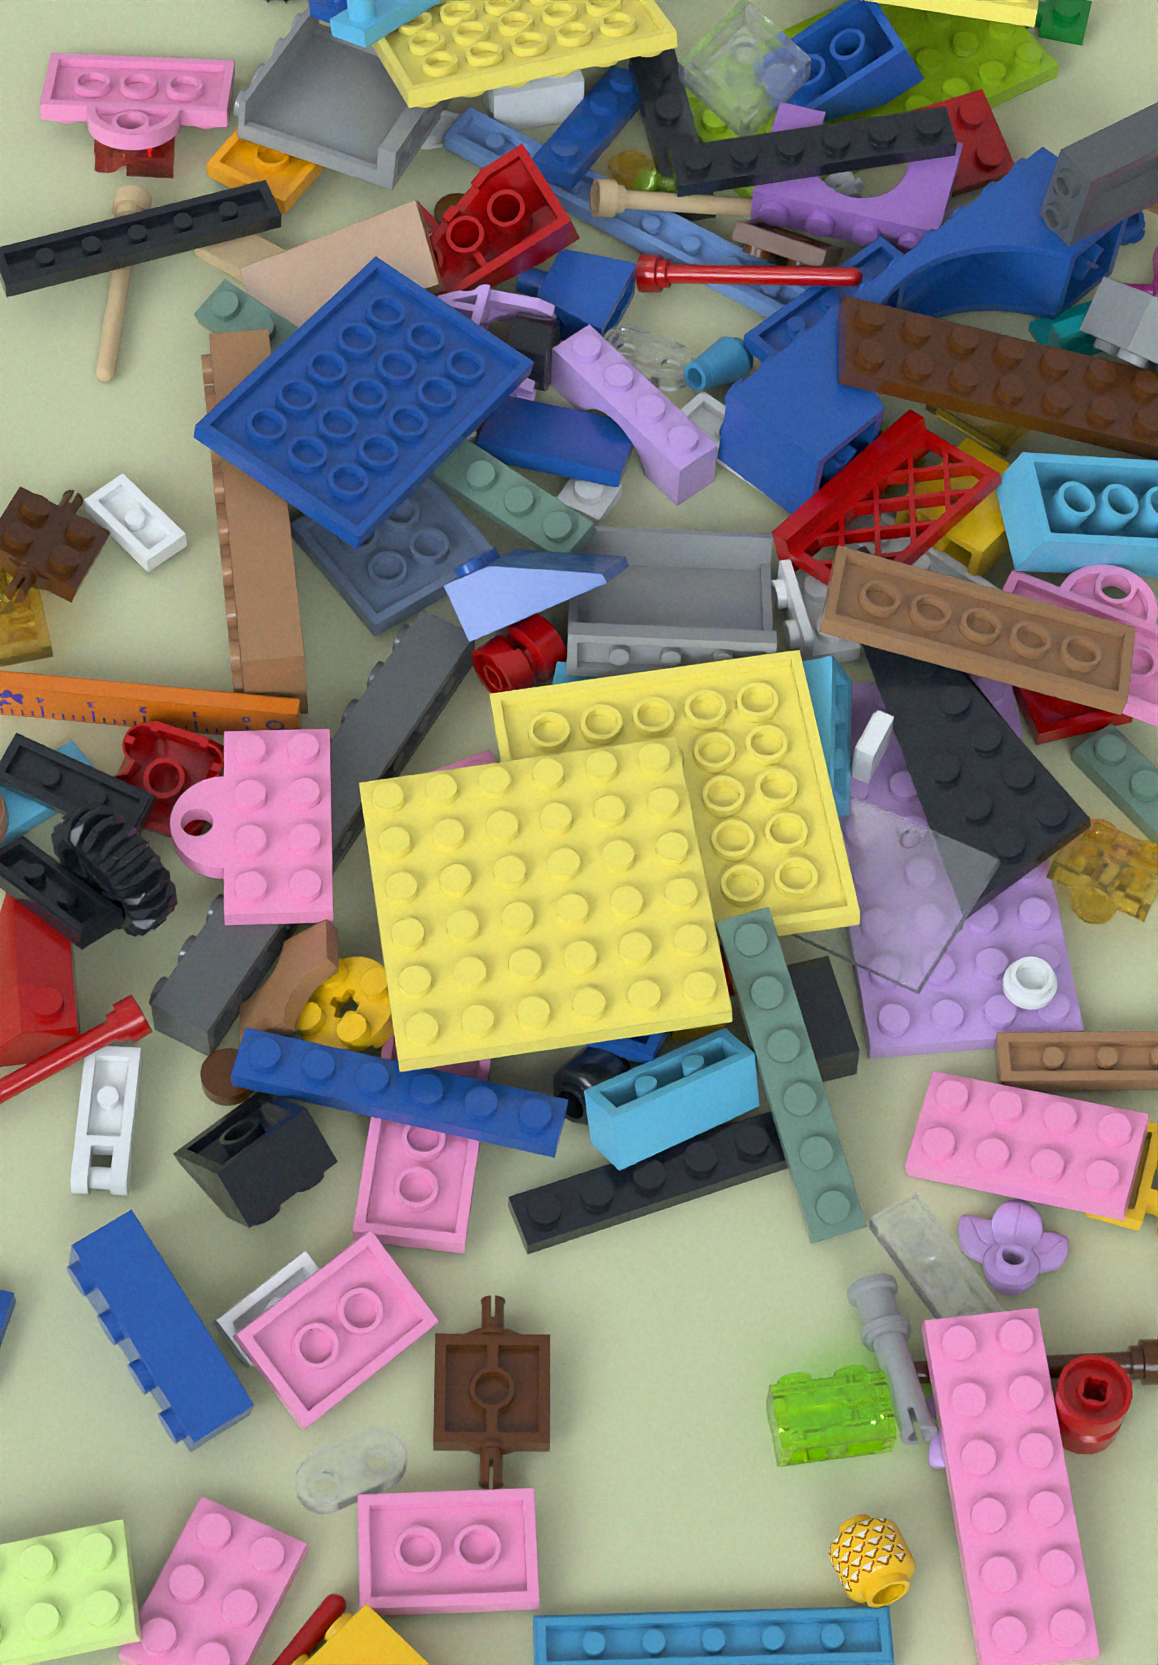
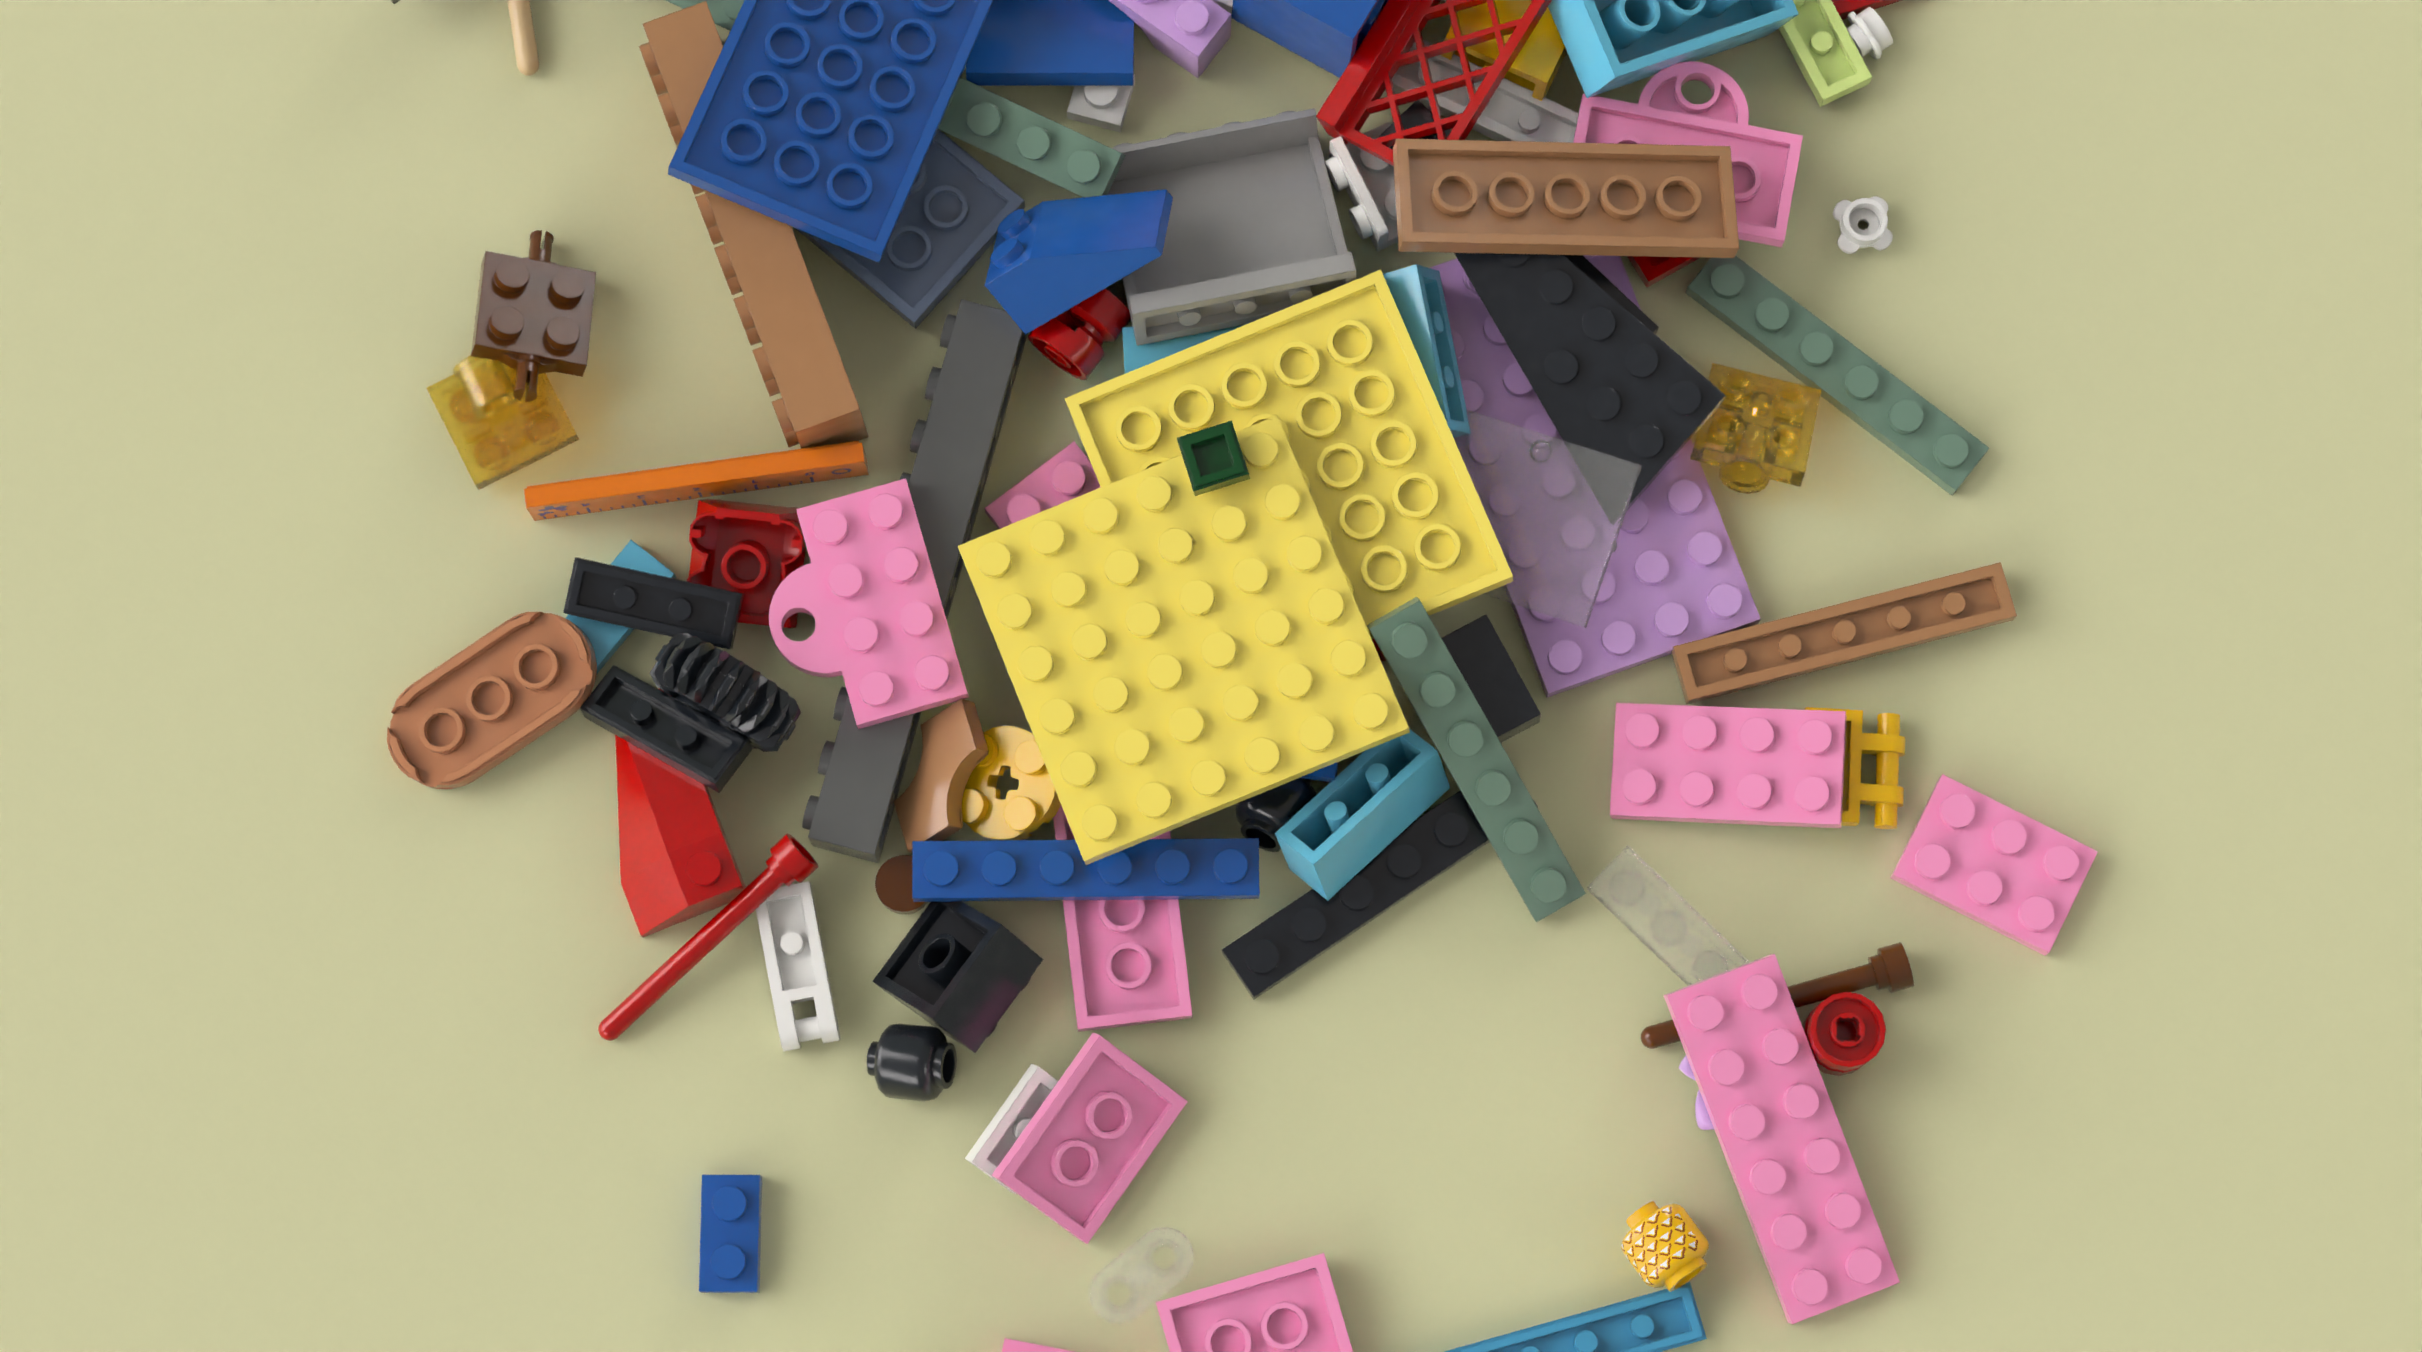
camera: 10 degrees left, 20 degrees up
(135, 522) = (619, 254): white plate -> none
(158, 1332) = (918, 1187): blue wedge -> none
(188, 1225) = (912, 1062): none -> black head
(492, 1392) = (1257, 1161): reddish brown plate -> none
(609, 752) = (1213, 458): none -> dark green tile
(830, 1416) = (1593, 1105): clear neon green brick -> none
(872, 746) = (1478, 351): white tile -> none
(887, 1336) = (1630, 1007): light grey pin -> none
(1012, 1246) = (1733, 866): lavender plate -> none
(1030, 983) = (1697, 587): white plate -> none

